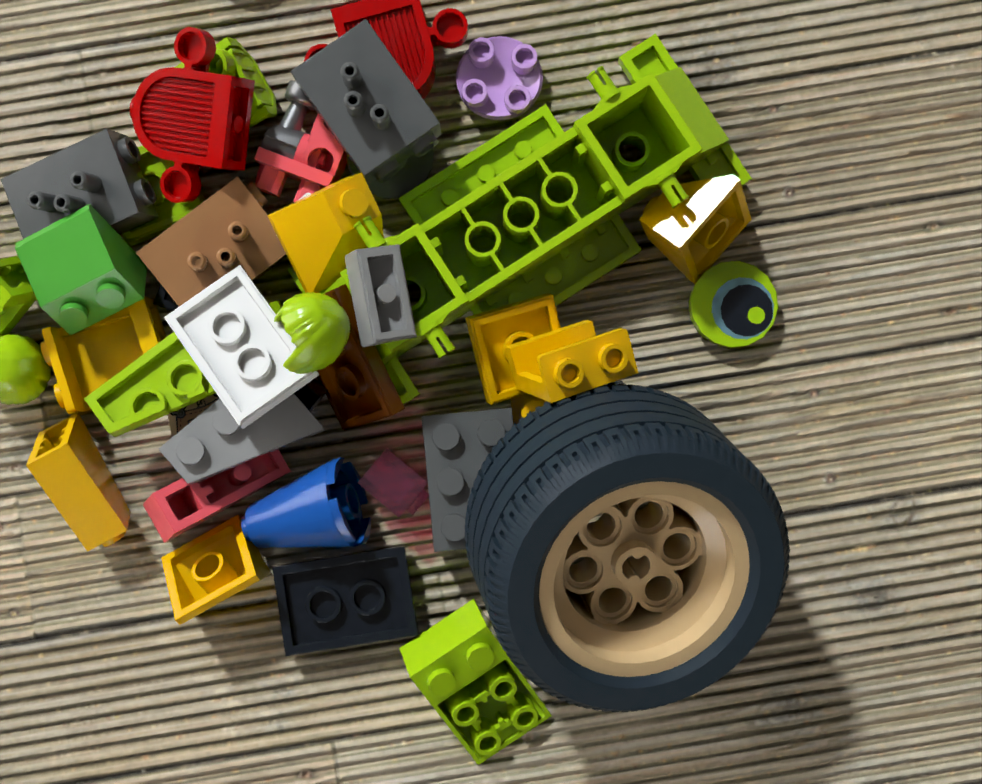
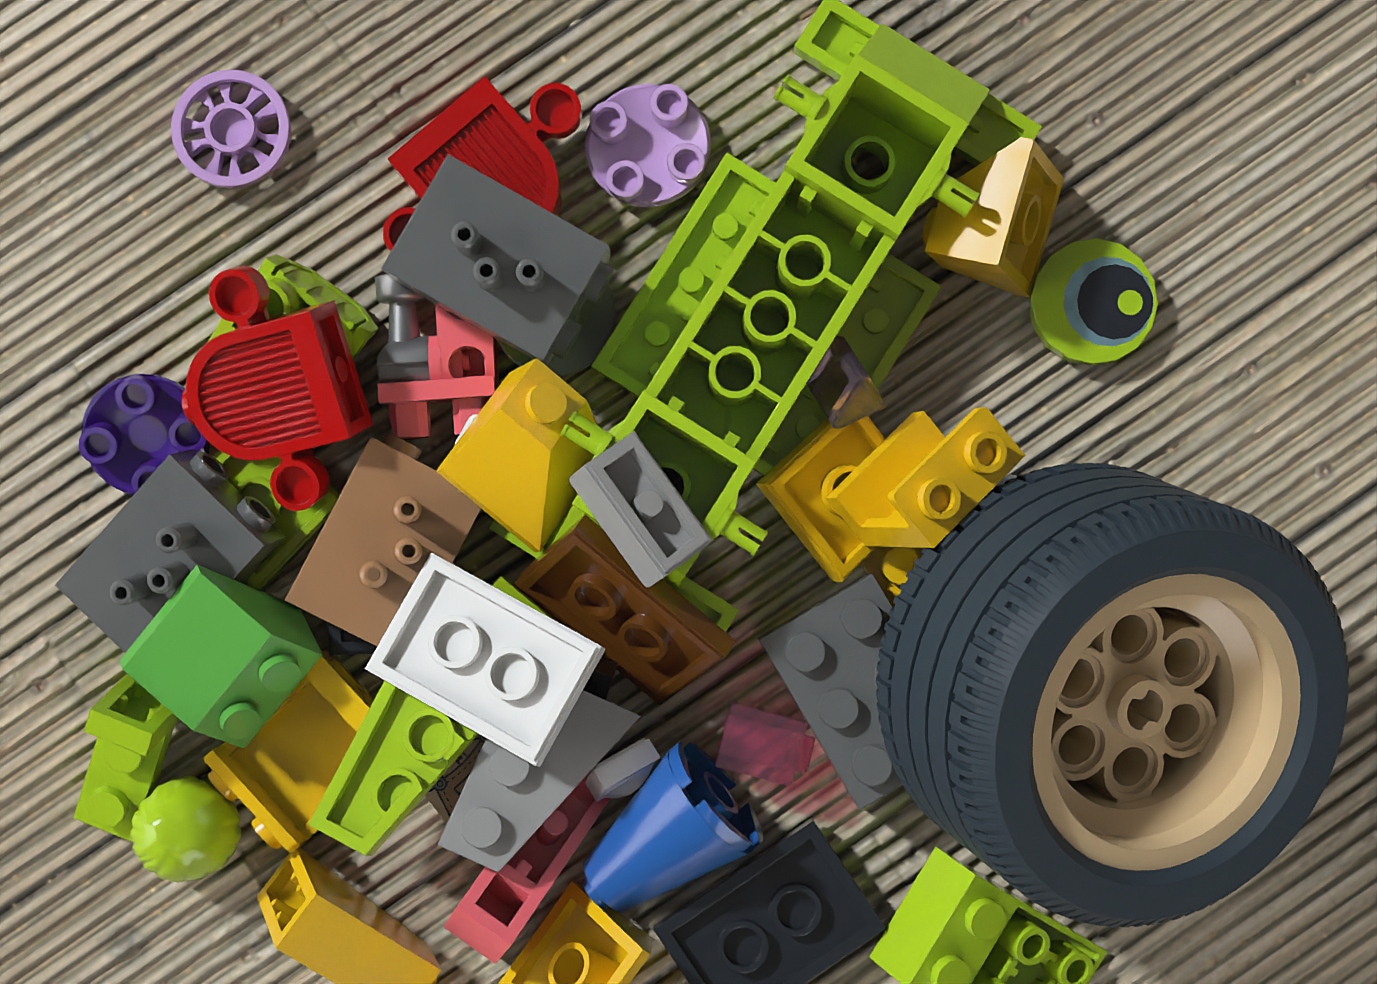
camera: 30 degrees left, 0 degrees up
(96, 103) = (135, 428): none -> dark purple dish
(299, 459) = (623, 771): none -> white tile
(317, 329) = (581, 591): lime hair -> none
(549, 281) = (843, 386): none -> slope

